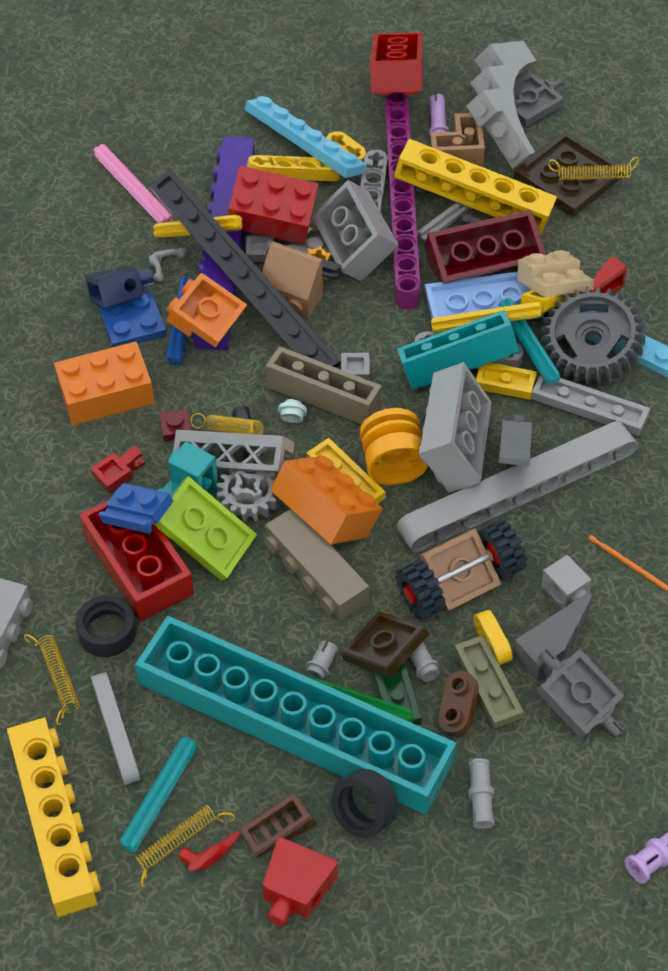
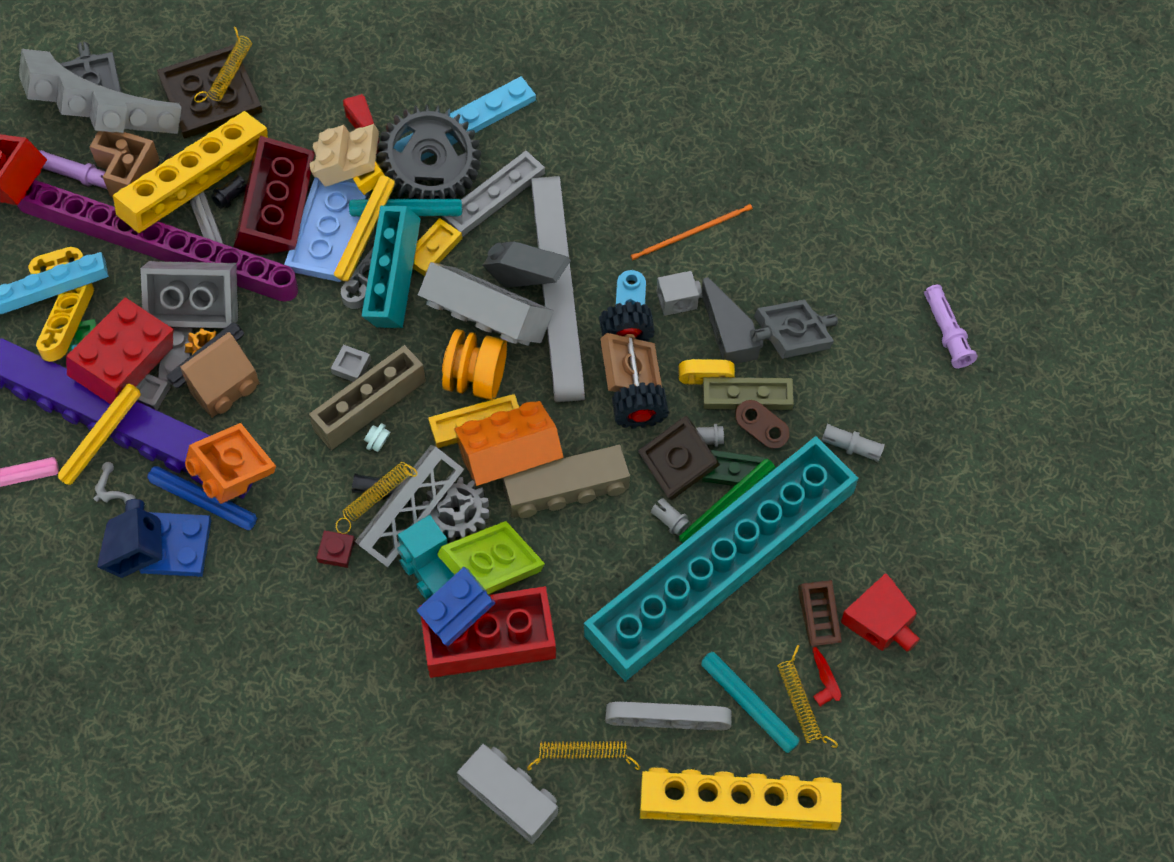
camera: 70 degrees left, 10 degrees up
(101, 606) = (545, 665): black tyre -> none
(104, 383) = (254, 595): orange brick -> none
(117, 470) = (368, 622): red plate -> none
(240, 269) = (186, 413): black plate -> none
(346, 811) = (849, 543): black tyre -> none
(375, 189) = (108, 246): light grey beam -> none
(545, 549) = (631, 292): none -> medium azure plate

